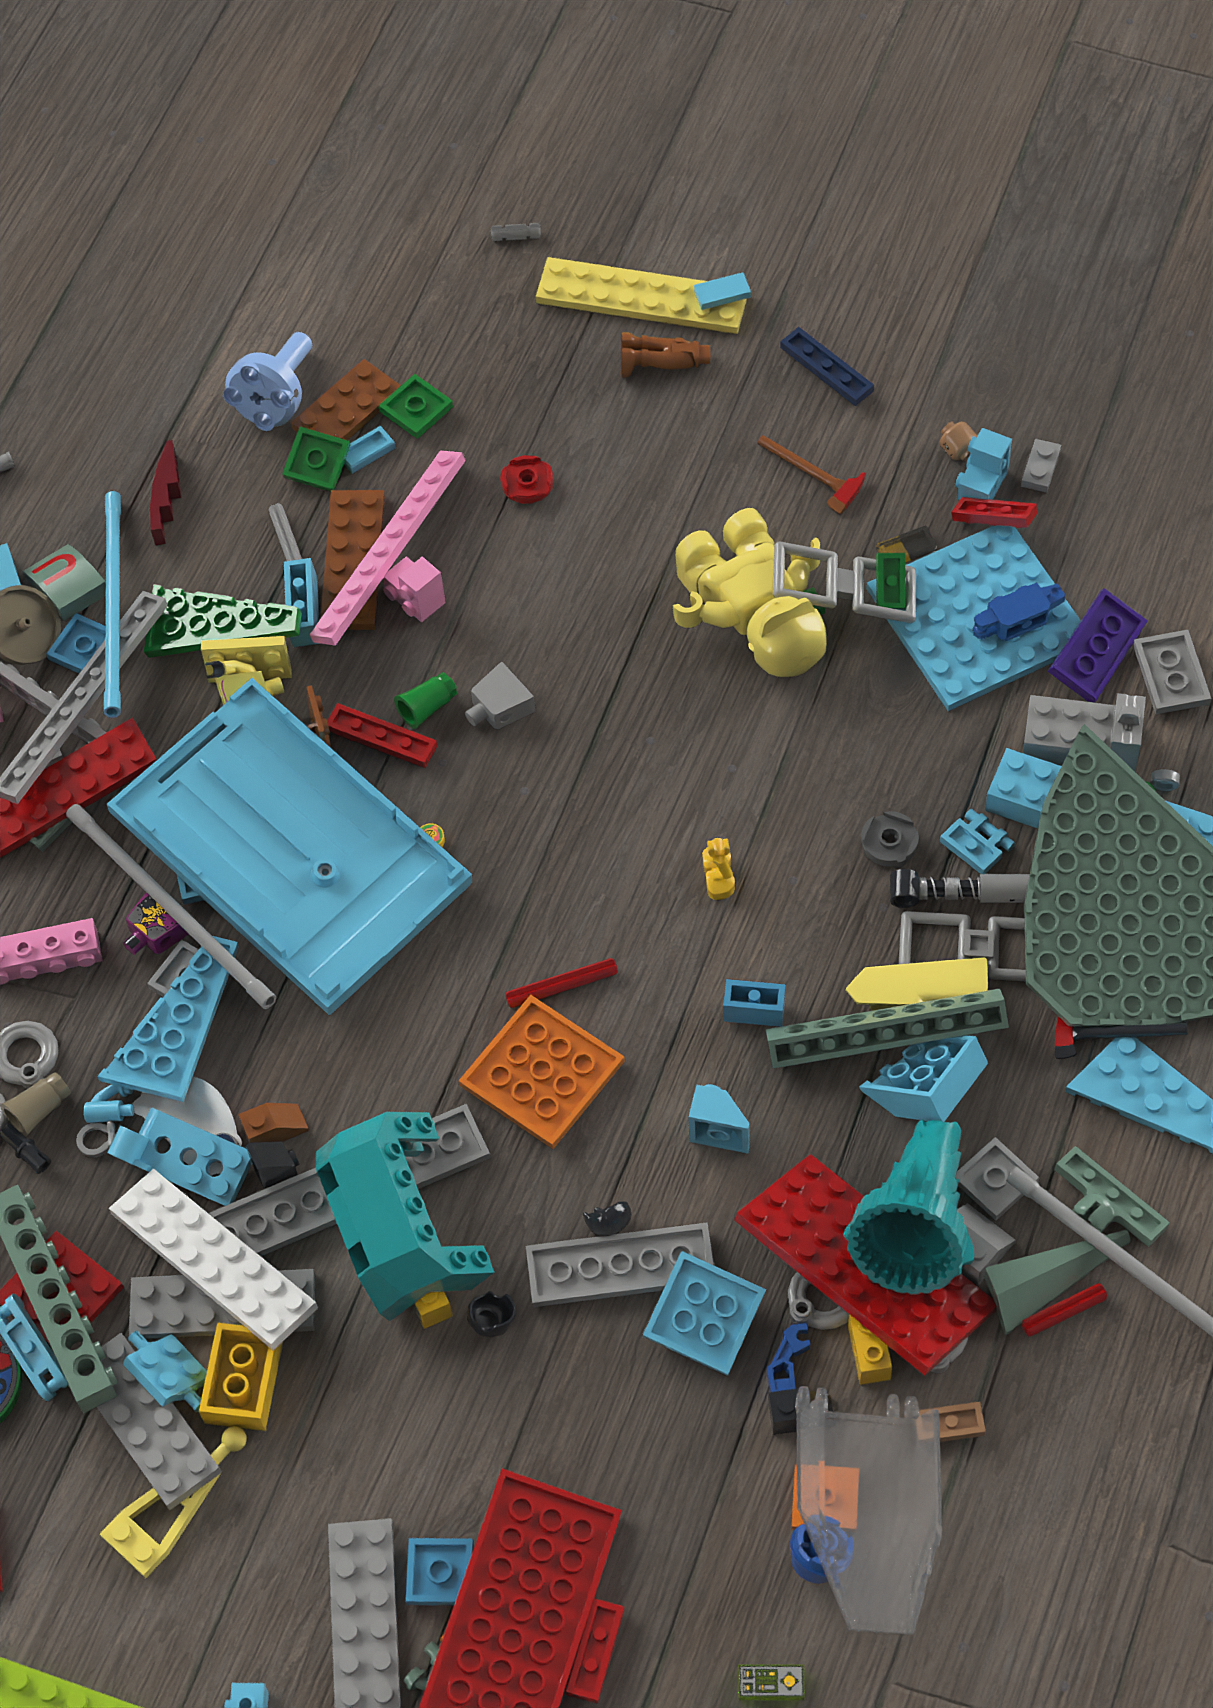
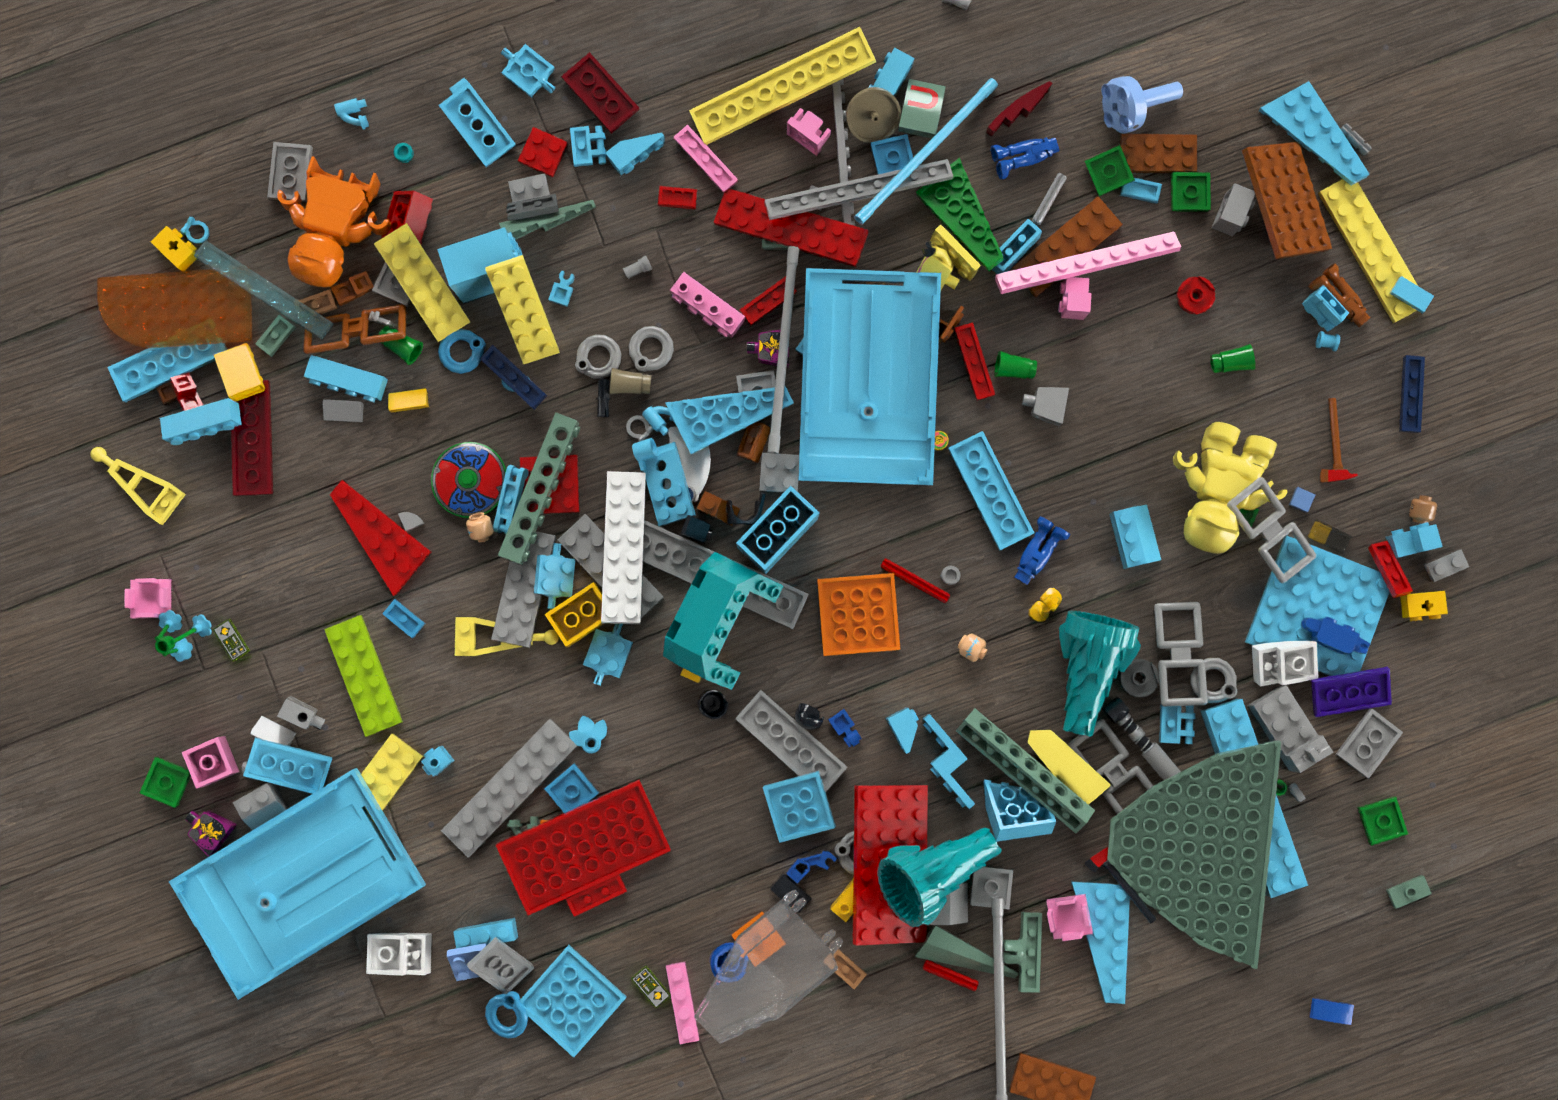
camera: 45 degrees right, 25 degrees up
(25, 1409) = (479, 527): none -> light nougat head
(39, 1599) = (403, 618): none -> dark azure plate
(101, 889) = (765, 302): none -> red plate
(222, 514) = (1034, 150): none -> blue piece
(237, 1028) = (753, 441): none -> dark orange slope
(300, 1029) = (779, 472): none -> light grey plate
(304, 1113) = (733, 520): none -> black helmet
(317, 1389) = (608, 653): none -> medium azure plate
(358, 1054) = (777, 530): none -> medium azure brick
(389, 1491) = (589, 731): none -> medium azure plate
(468, 256) = (1314, 128): none -> medium azure wing
(474, 377) = (1234, 210): none -> light grey brick
(513, 323) = (1287, 199): none -> dark orange plate
(537, 827) = (991, 490): none -> medium azure plate
(591, 942) = (950, 575): none -> light grey tile
(630, 492) = (1233, 360): none -> green plant
(651, 1188) = (842, 723): none -> blue plate
(654, 844) = (1033, 560): none -> blue piece
(659, 374) = (1325, 308): none -> medium azure brick
(694, 979) = (972, 647): none -> light nougat head
(696, 398) = (1328, 341): none -> medium azure bush
(726, 727) = (1135, 536): none -> medium azure slope
(754, 1002) = (984, 690): dark azure brick -> none
(802, 1108) = (947, 761): none -> medium azure bracket
(818, 843) = (1096, 652): none -> teal cone
(826, 1660) = (682, 1002): none -> bright pink plate
(842, 542) = (1302, 499): none -> medium blue tile
(890, 580) = (1294, 553): green plate -> none
(901, 777) = (1180, 654): none -> light grey bar
(966, 747) = (1230, 680): none -> light grey piece
(1004, 682) = (1284, 662): none -> white slope
(1063, 512) = (1435, 605): none -> yellow brick
(1105, 1118) = (1069, 917): none -> bright pink panel

